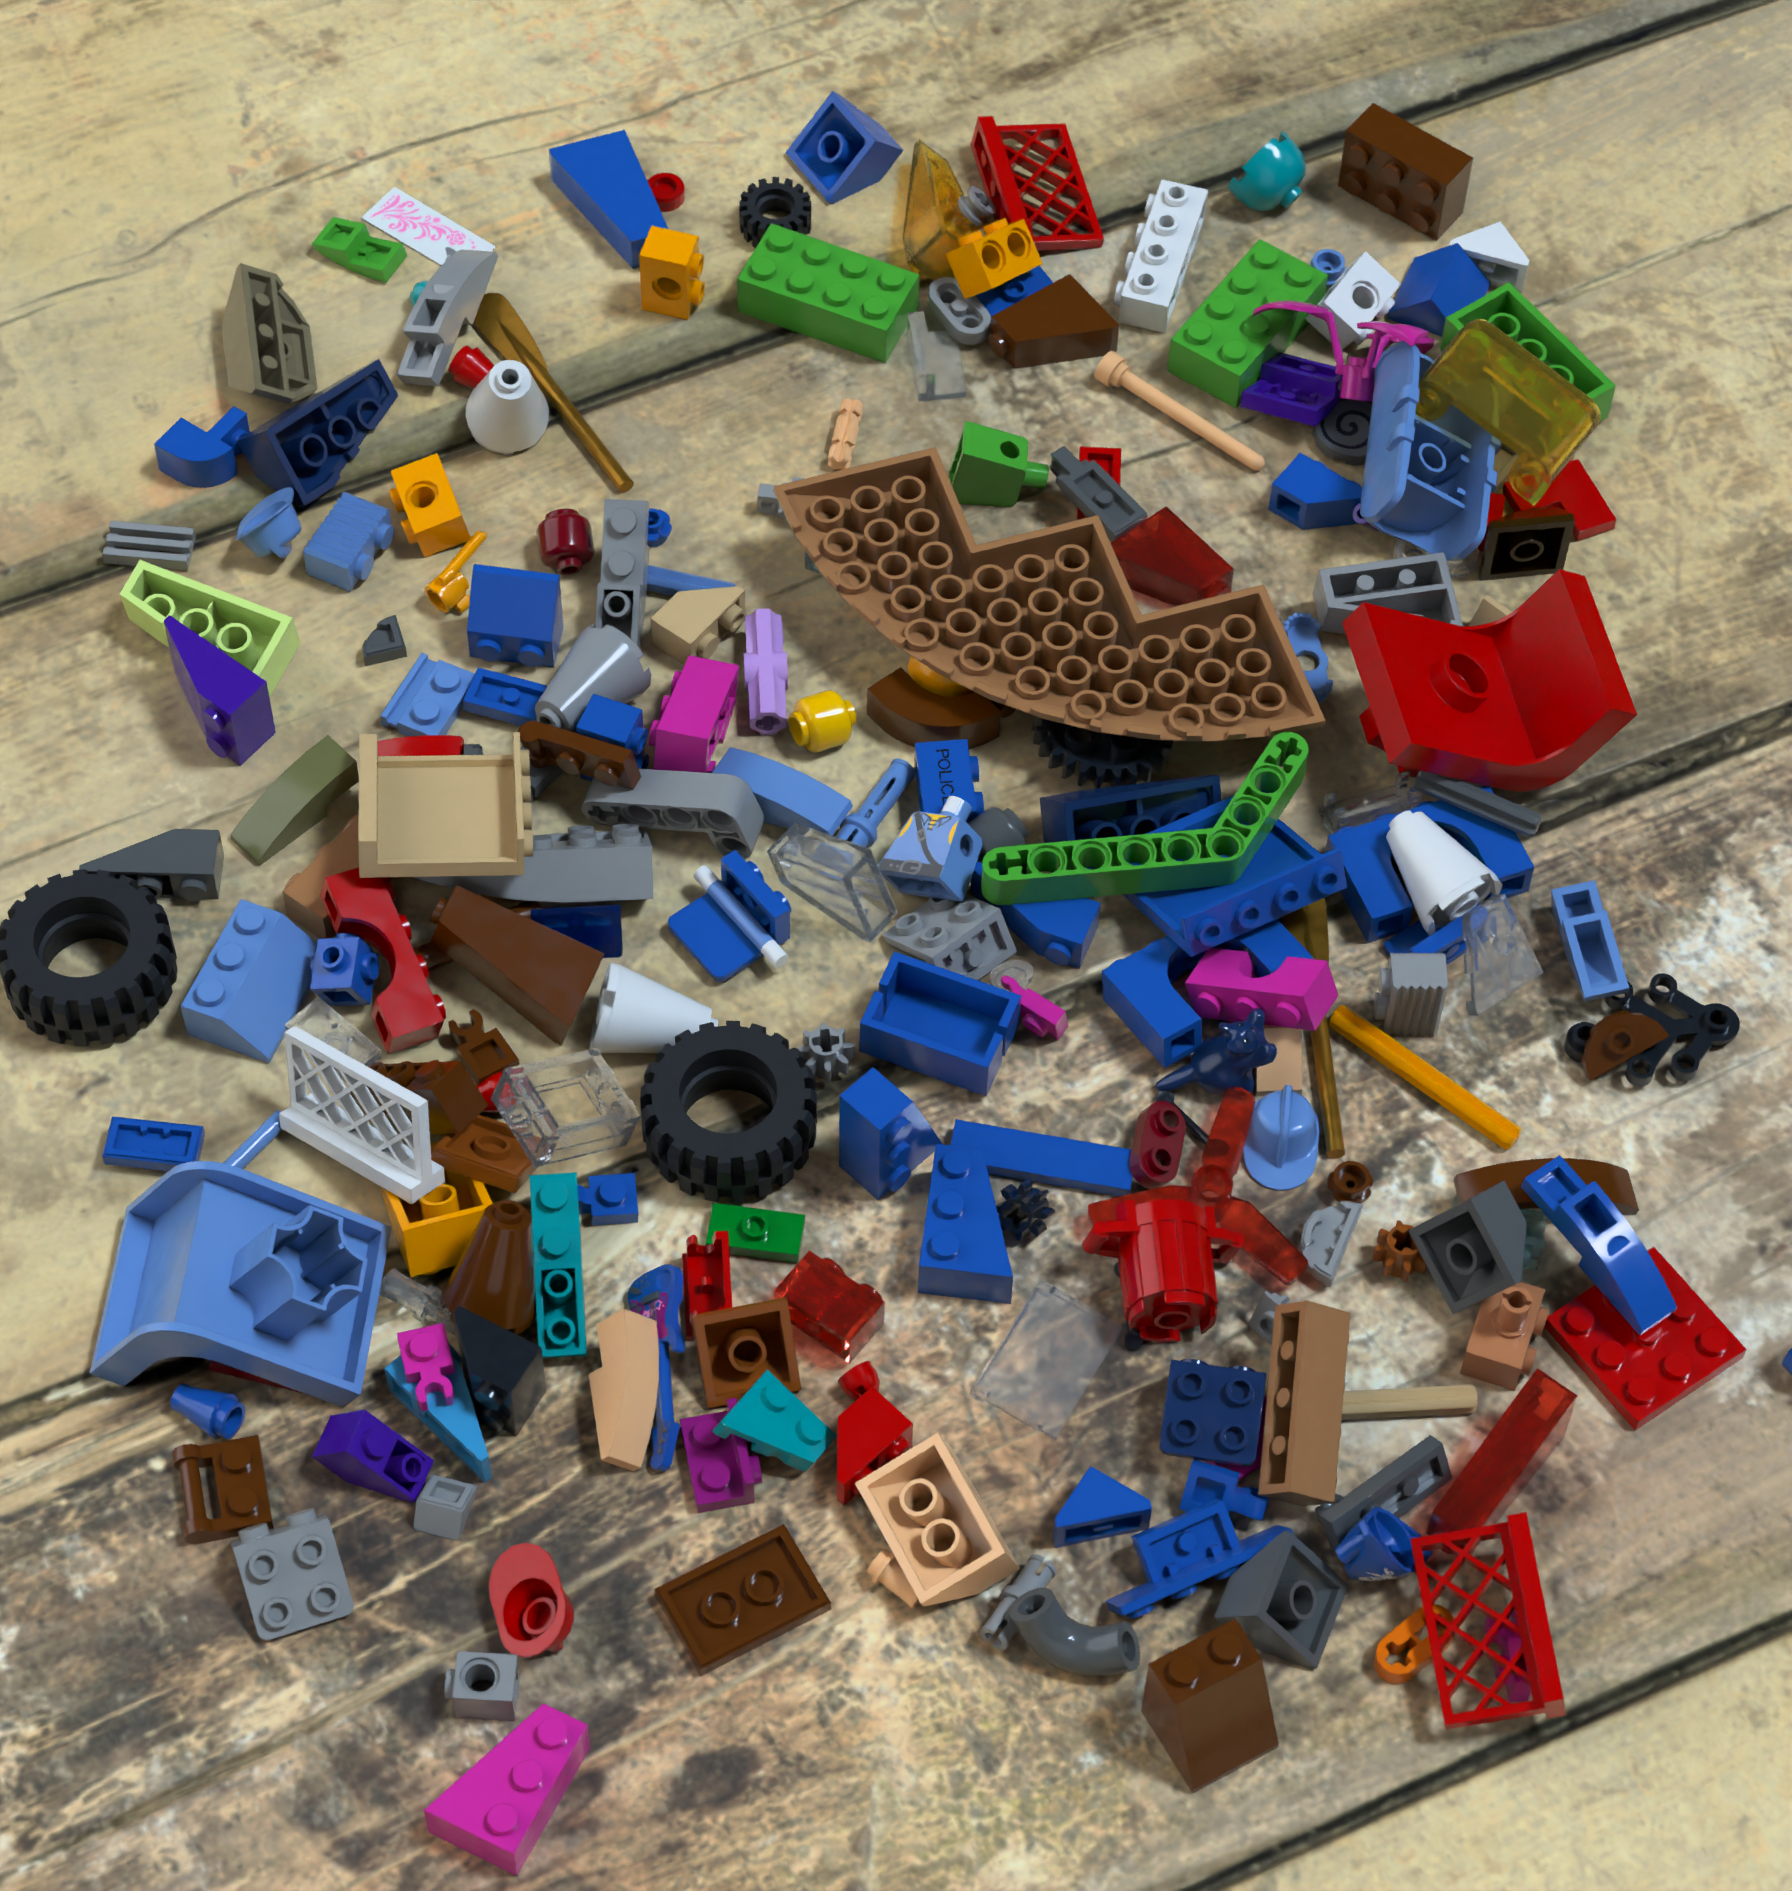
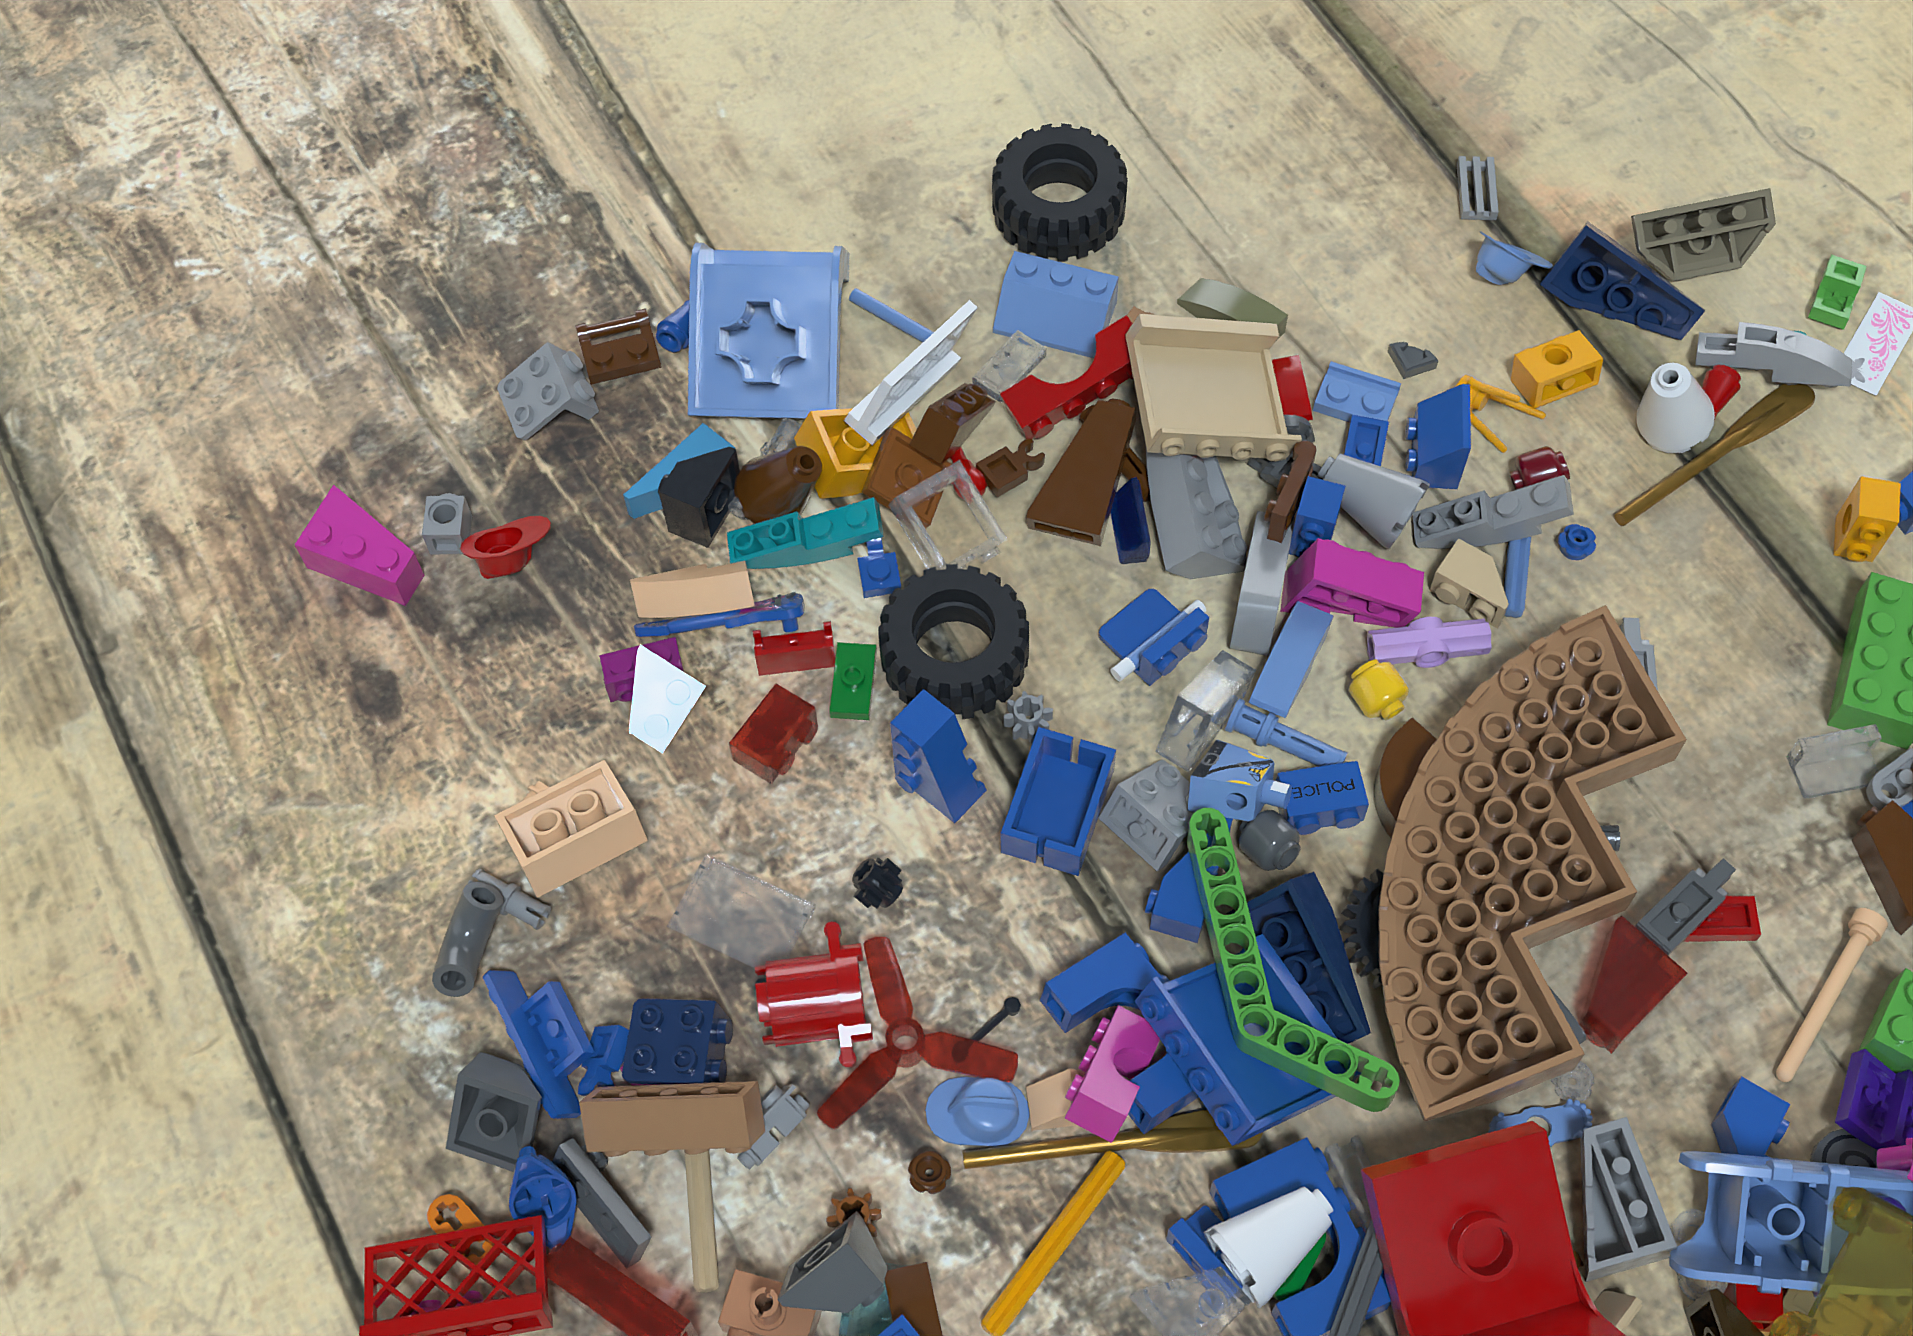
camera: 90 degrees right, 5 degrees up
(151, 1144) = (905, 264): blue plate -> none
(170, 864) = (1159, 234): dark grey slope -> none
(201, 456) = (1575, 205): blue brick -> none
(223, 694) = (1319, 237): dark purple slope -> none
(242, 629) = (1385, 237): yellowish green wedge -> none
(344, 970) = (1066, 356): blue brick -> none
(348, 541) = (1506, 316): medium blue brick -> none
(372, 1456) = (638, 431): dark purple slope -> none
(427, 1360) = (701, 441): dark pink plate -> none
(444, 1507) = (605, 487): light grey slope -> none
(642, 1014) = (1045, 572): white cone -> none
(741, 1345) = (730, 677): dark orange slope -> none
(742, 1599) = (521, 698): reddish brown tile -> none
(845, 434) = (1724, 691): light nougat axle -> none
(858, 1380) = (710, 768): red hinge -> none
(868, 1437) = (652, 771): red slope -> none
(962, 1231) = (847, 829): blue wedge -> none
(993, 467) = (1703, 812): bright green torso -> none
(1017, 969) = (1126, 868): clear piece -> none
(1037, 1012) = (1087, 884): dark pink plate -> none
(1048, 1158) = (940, 903): blue tile -> none
(1100, 1510) = (591, 957): blue slope -> none
(1161, 1135) = (956, 994): dark red plate -> none
(1211, 1705) = (390, 1046): reddish brown slope -> none
(1226, 1058) = (1042, 1045): dark blue animal -> none
(1327, 1238) = (866, 1150): light grey plate -> none
(1411, 993) = (1129, 1219): light grey brick -> none

